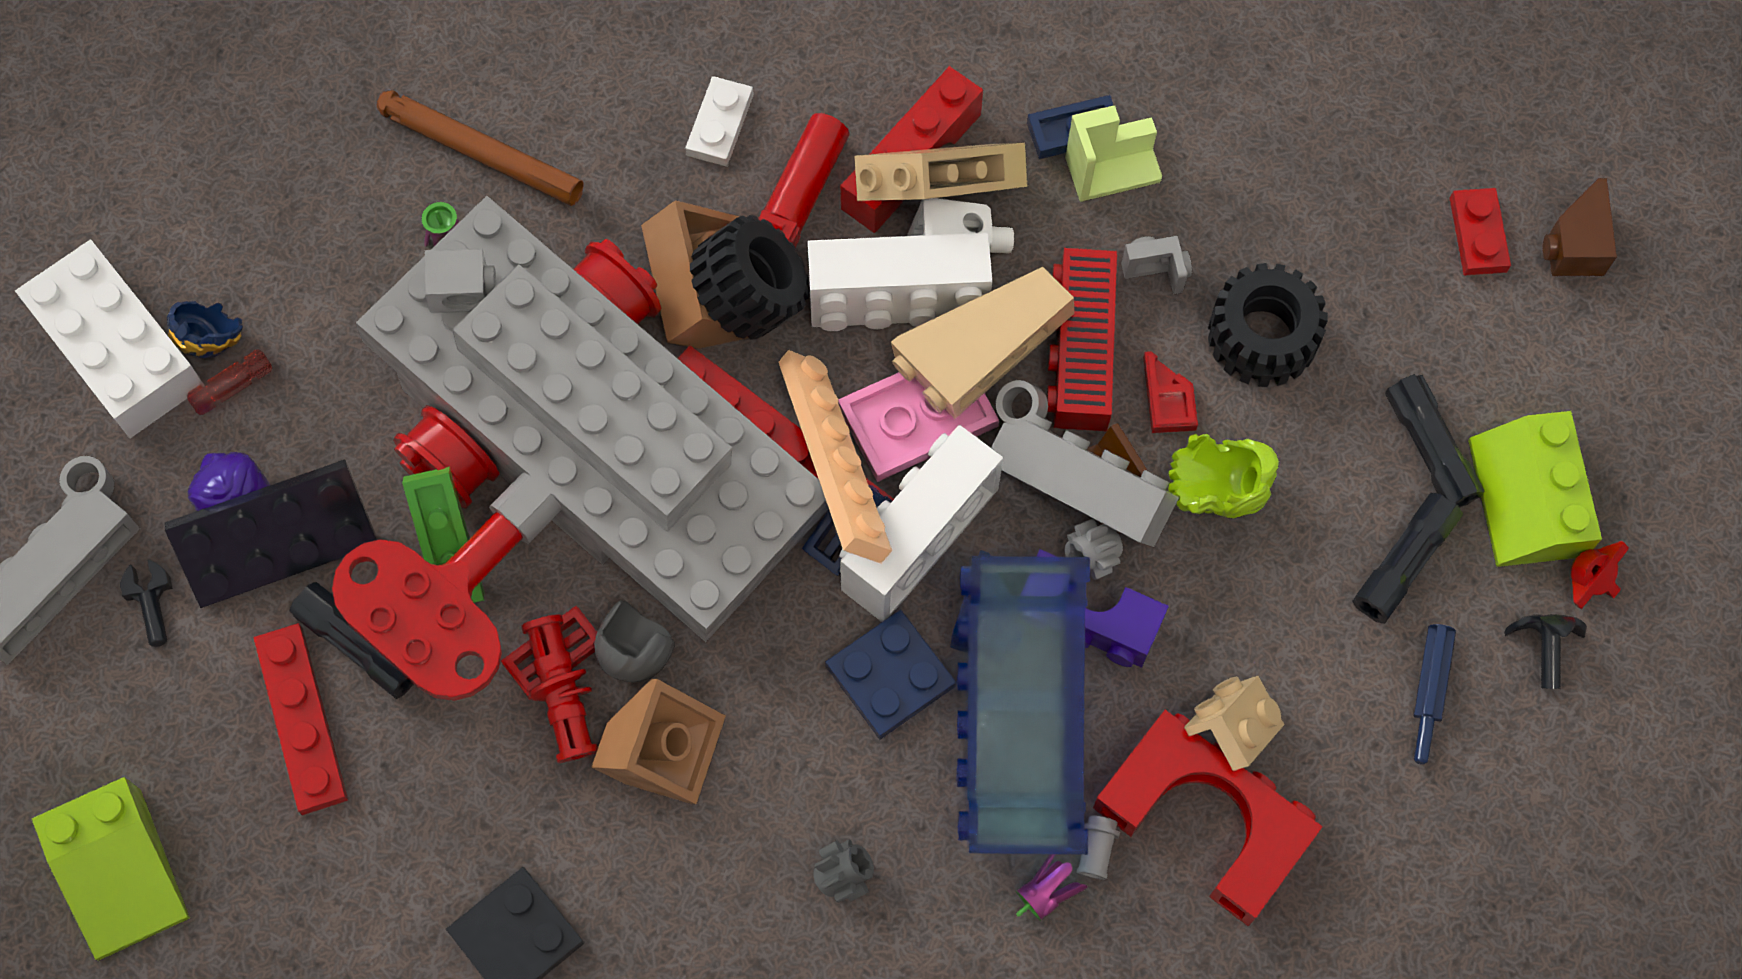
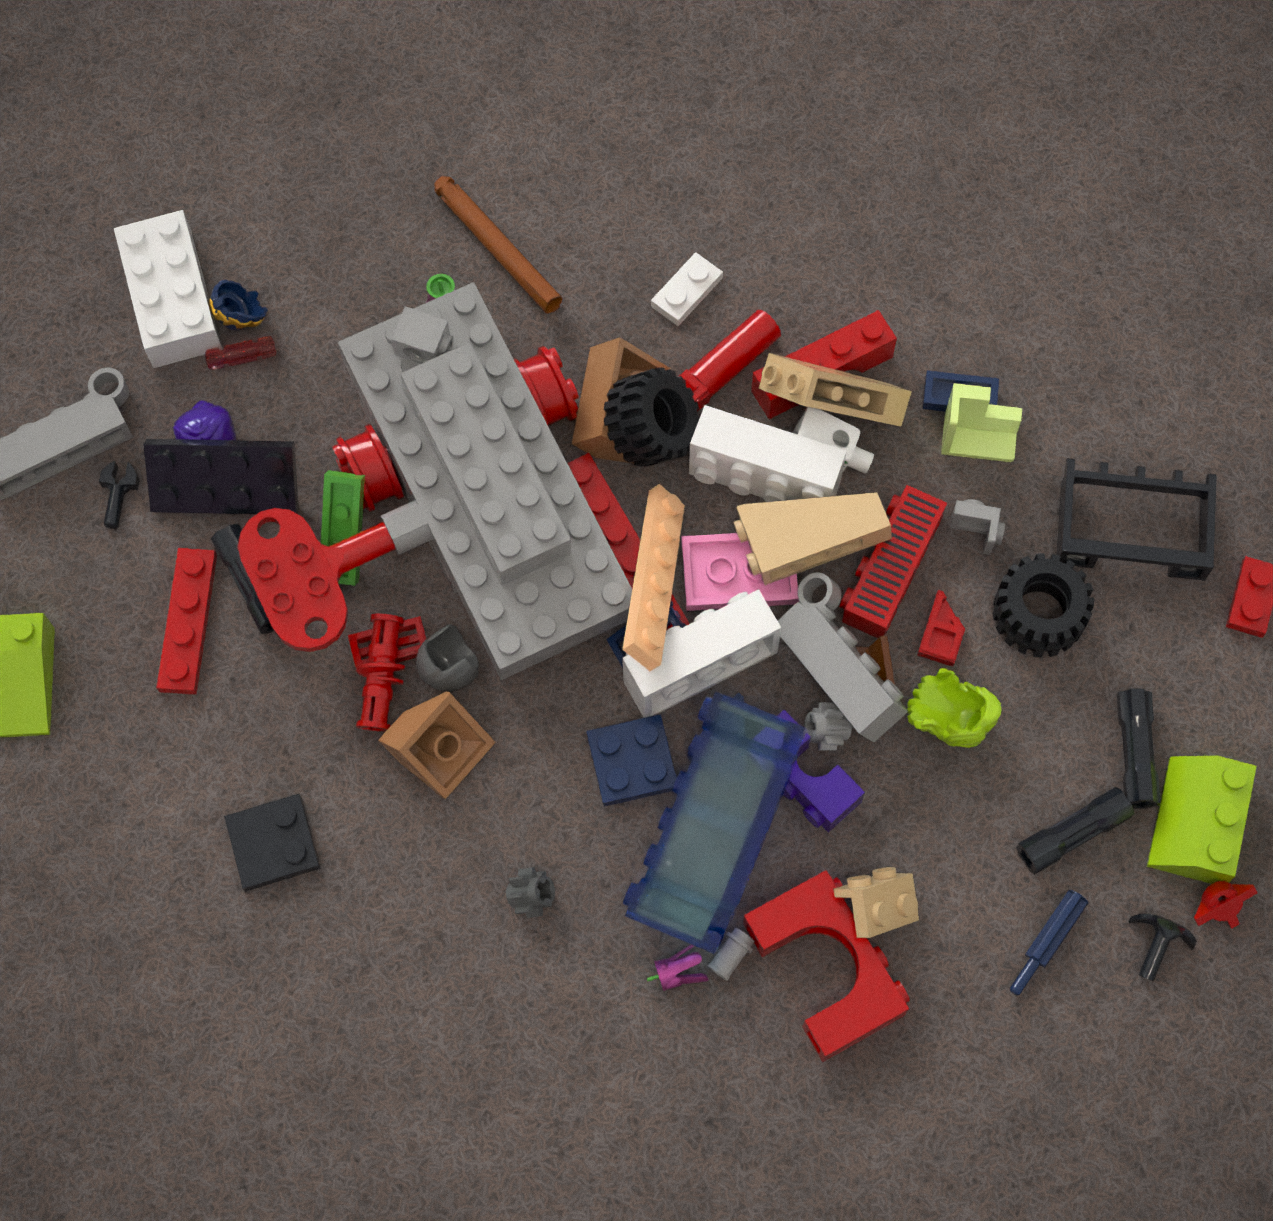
camera: 25 degrees right, 0 degrees up
(1387, 224) = (1179, 562): none -> black hinge

